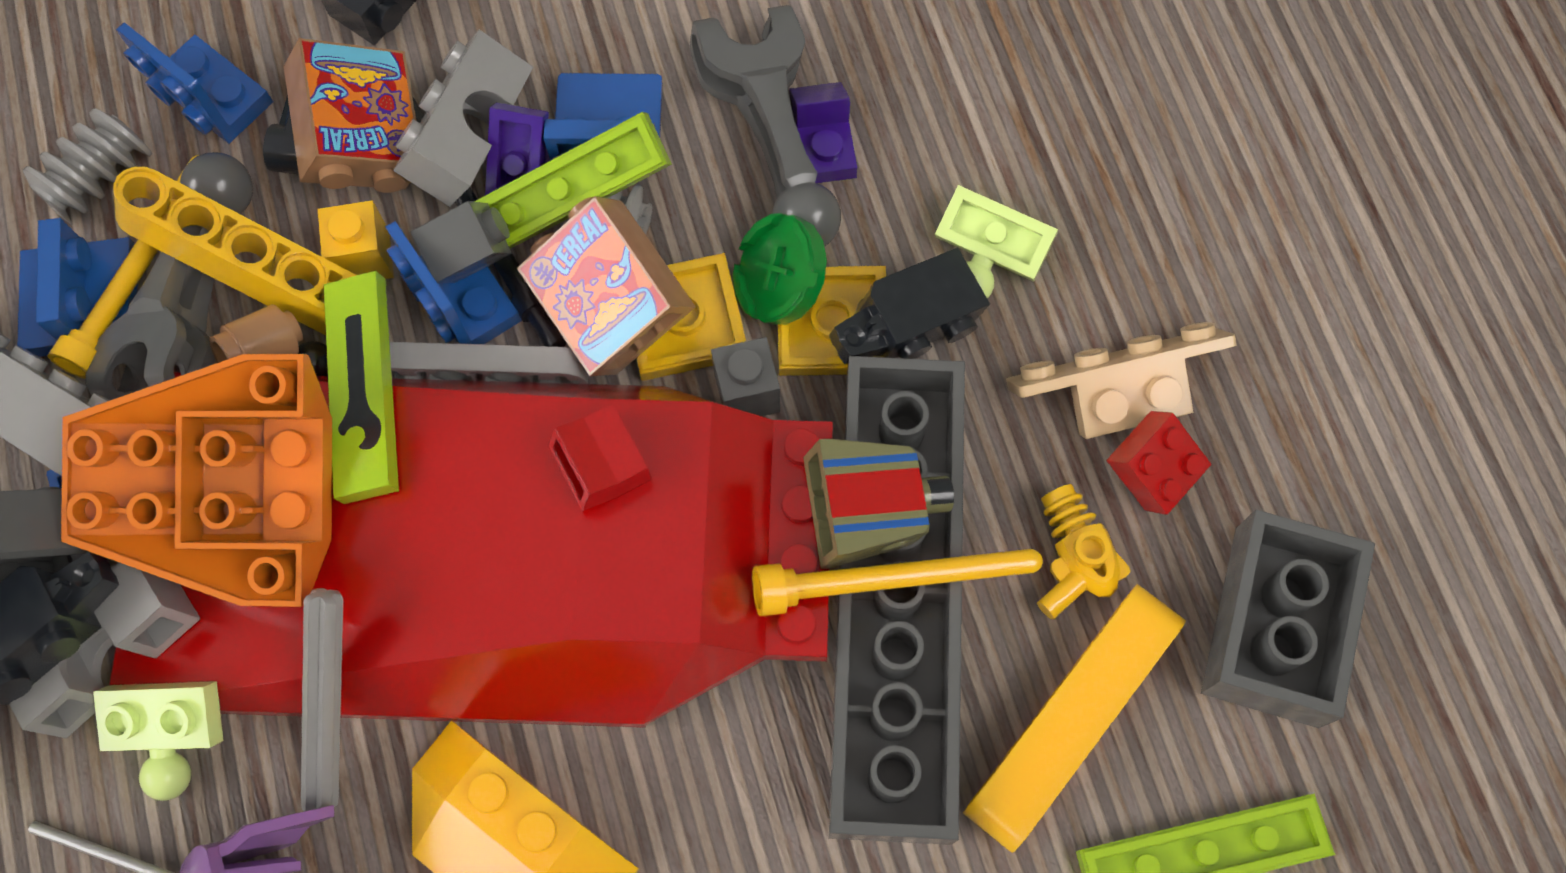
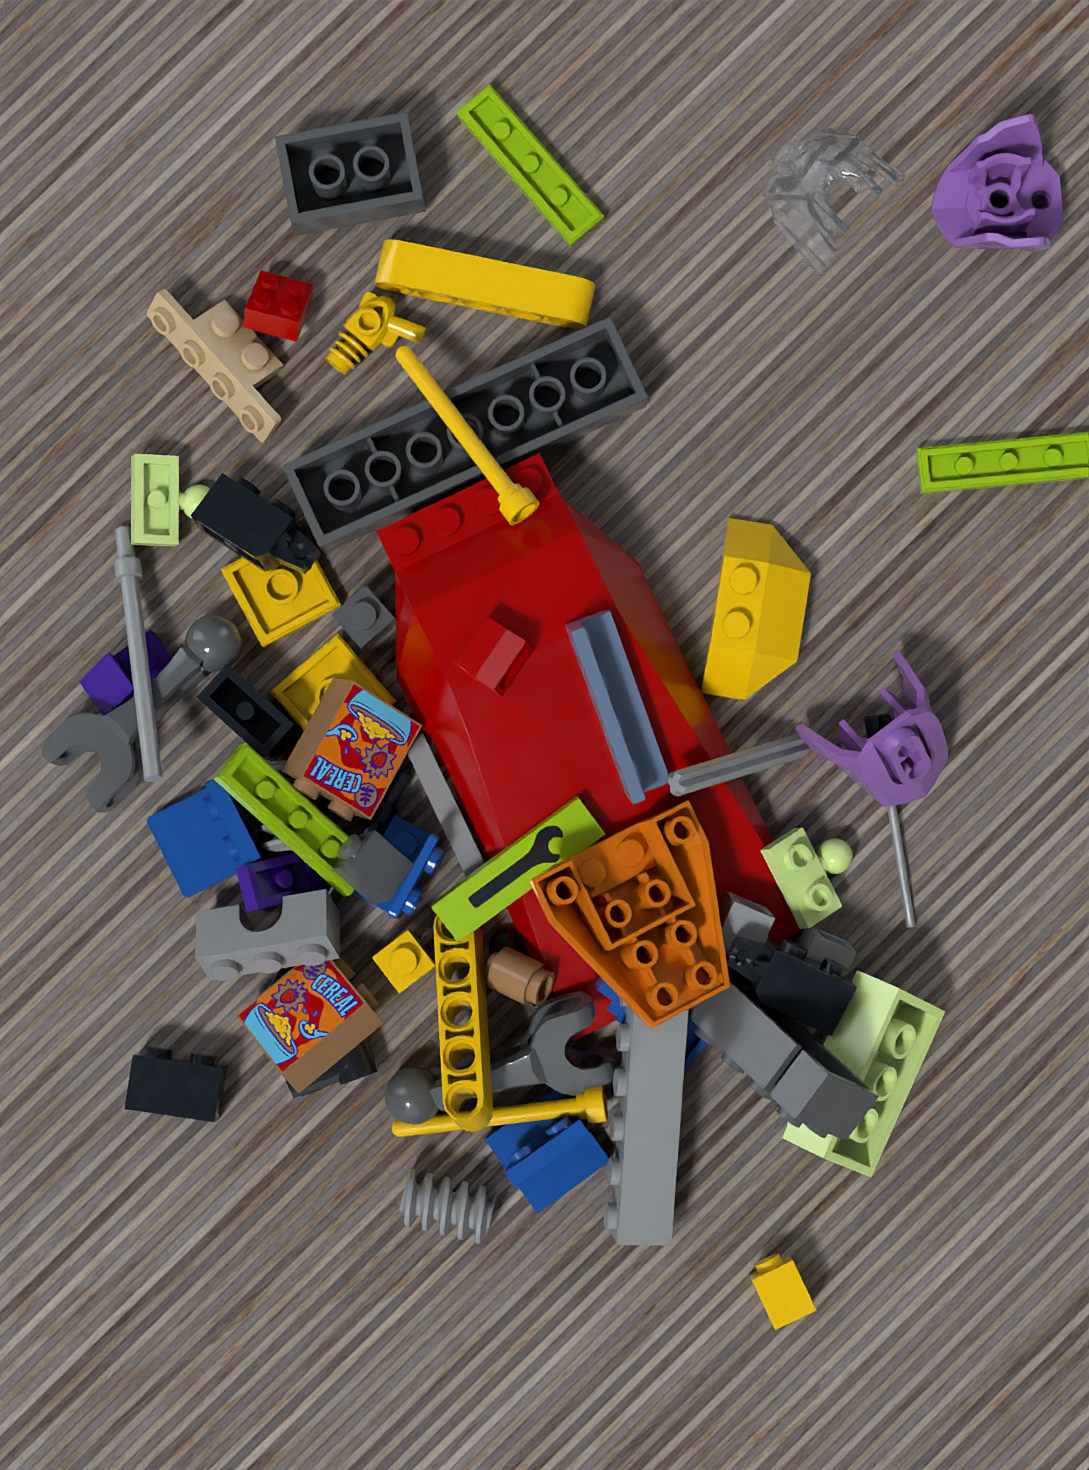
camera: 115 degrees left, 15 degrees up
(201, 81) = (332, 1166): blue bracket -> none
(464, 578) = (618, 704): none -> sand blue fence
(708, 209) = (247, 712): none -> black brick
(780, 269) = (269, 637): green tile -> none
(869, 499) = (425, 472): torso -> none
(930, 172) = (129, 573): none -> light grey bar

